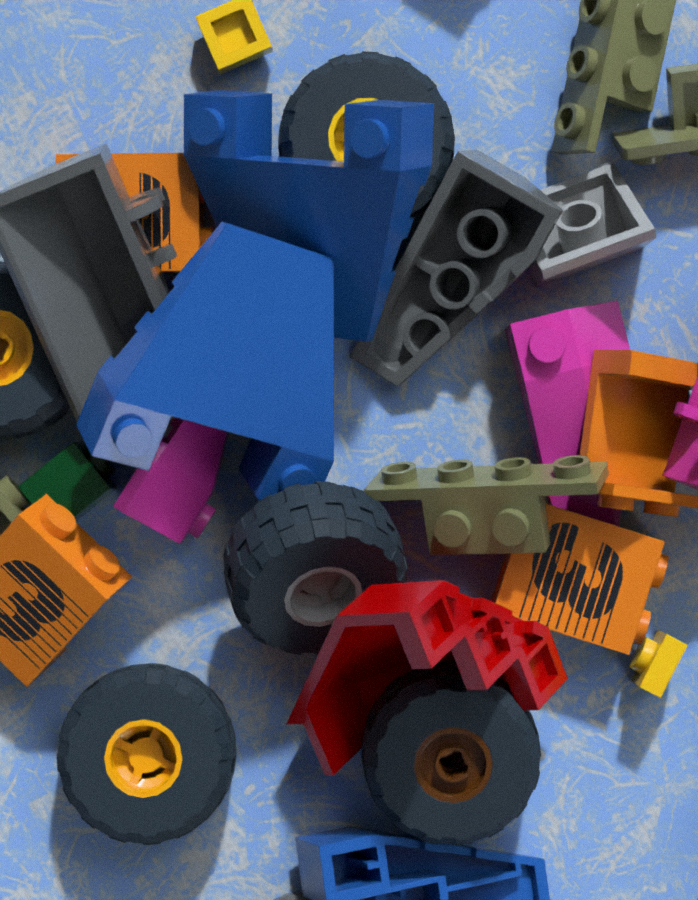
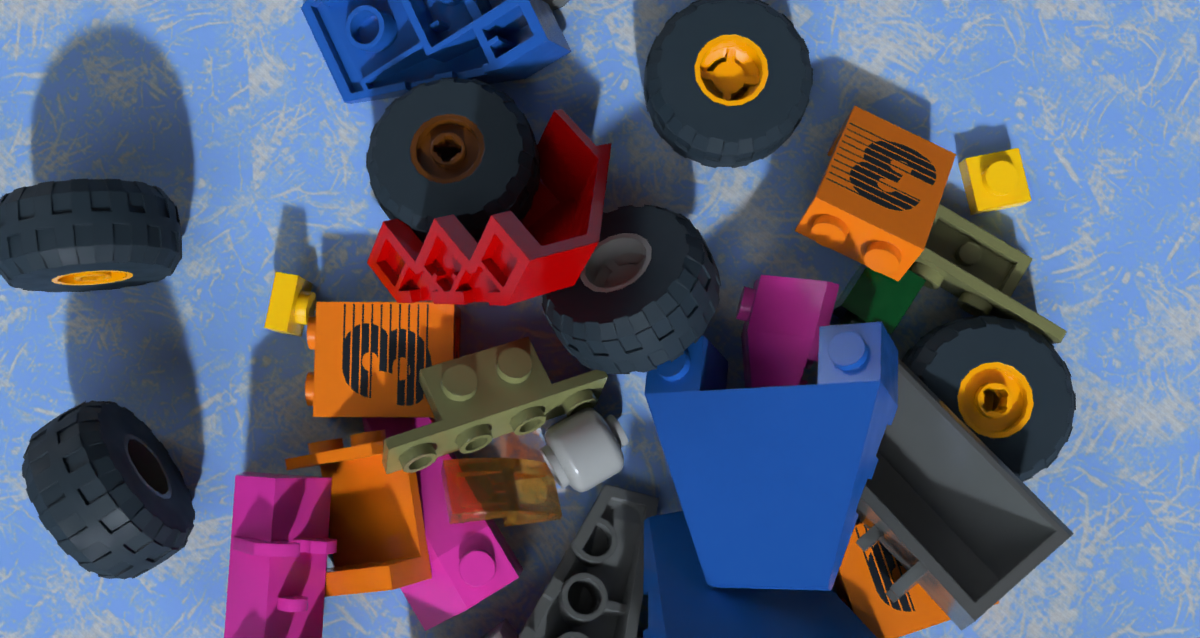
camera: 160 degrees right, 5 degrees down
(408, 426) = (584, 449): none -> light grey head
(502, 414) = (499, 488): none -> clear orange slope

